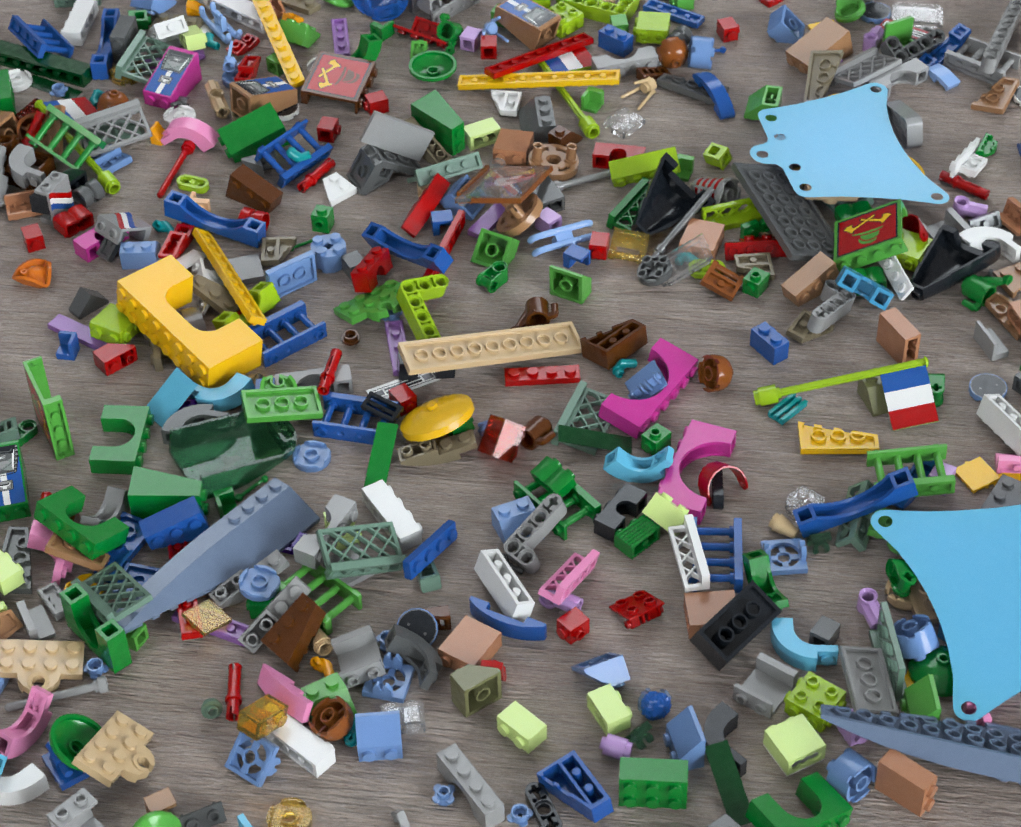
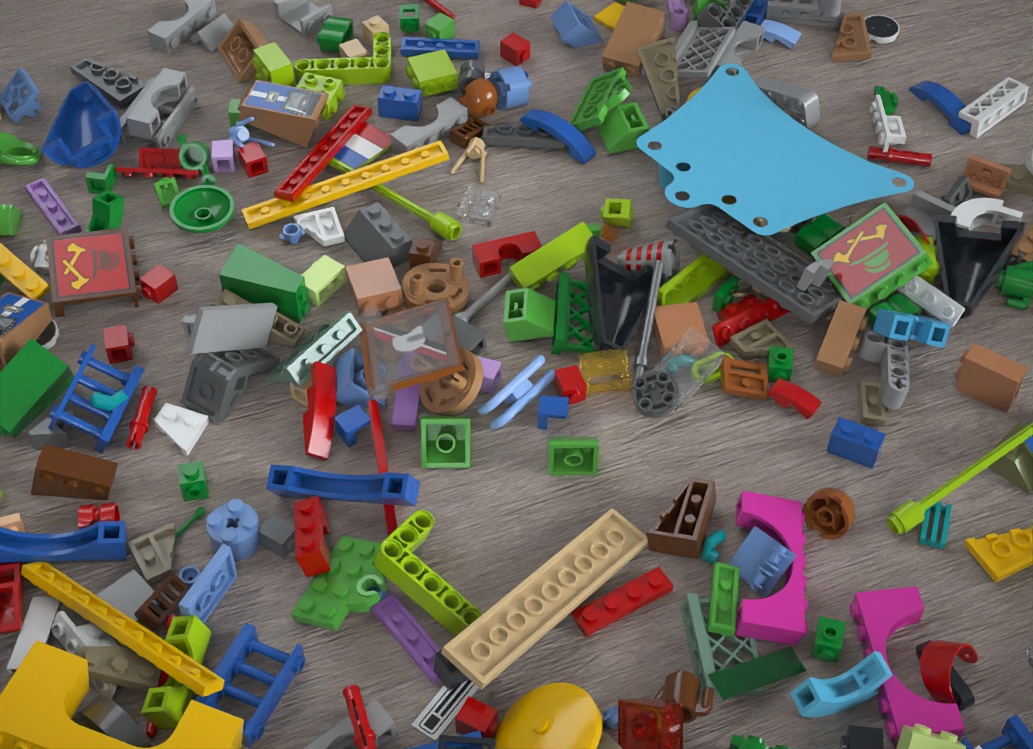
camera: 30 degrees left, 5 degrees up
(248, 273) = (150, 613): none -> reddish brown slope
(350, 337) = (342, 644): reddish brown plate -> none
(484, 100) = (292, 233): none -> medium blue plate
(495, 276) = (469, 482): green piece -> none
(537, 313) = (561, 517): reddish brown piece -> none
(592, 99) = (424, 188): bright green panel -> none
(601, 195) = (528, 315): none -> bright green slope
(613, 384) = (723, 599): none -> bright green tile
(619, 21) = (389, 77): bright green brick -> none
(701, 166) = (609, 232): none -> clear orange plate
(751, 304) = (789, 393): none -> red slope
(759, 80) = (599, 97): none -> bright green plate
(820, 231) = (815, 274): none -> light grey slope
(965, 207) = (930, 183): lavender piece -> none

